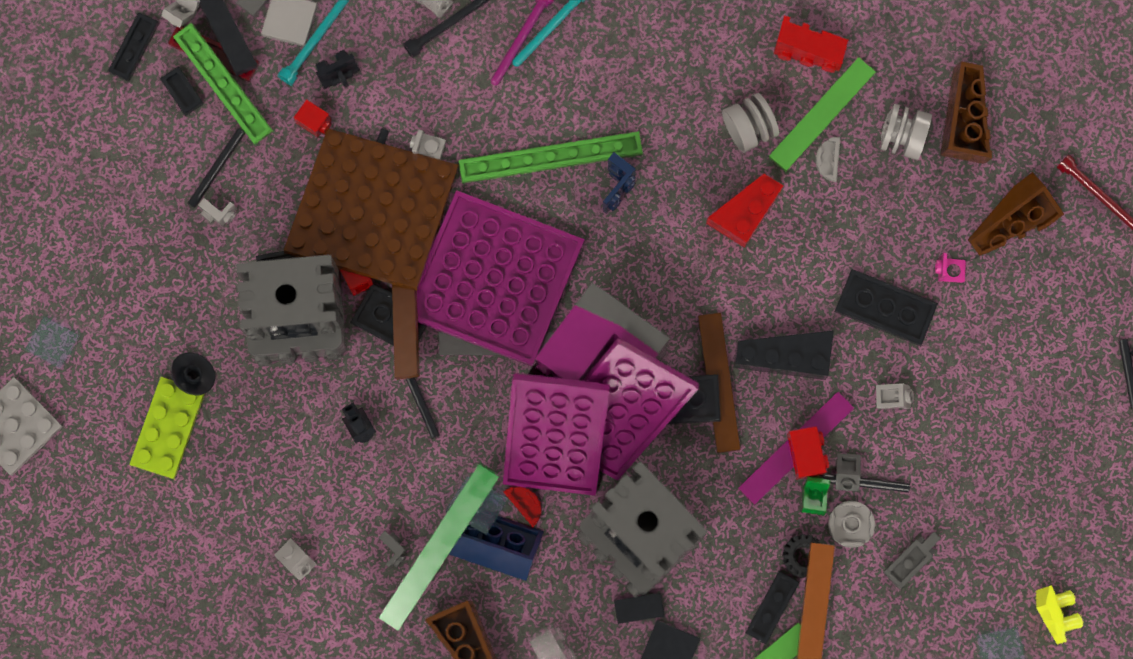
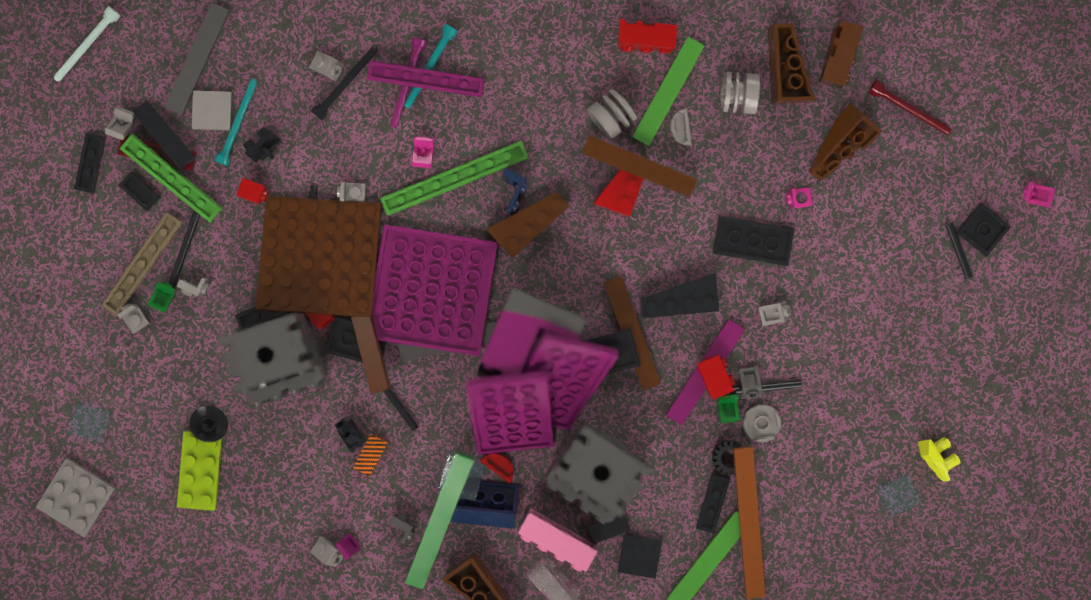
camera: 10 degrees left, 10 degrees up
(137, 232) = (134, 317): none -> light grey bracket
(163, 173) = (142, 263): none -> dark tan tile
(177, 214) = (162, 296): none -> green bracket
(321, 557) = (348, 546): none -> magenta tile
(374, 455) = (370, 455): none -> tile
(521, 118) = (423, 152): none -> dark pink bracket
(544, 37) = (425, 79): none -> magenta tile
(575, 603) = (558, 540): none -> bright pink brick
(625, 226) = (527, 224): none -> reddish brown wedge
(770, 186) = (639, 166): none -> reddish brown tile
(911, 560) = (815, 441): dark grey hinge -> none
(1033, 114) = (841, 54): none -> reddish brown wedge

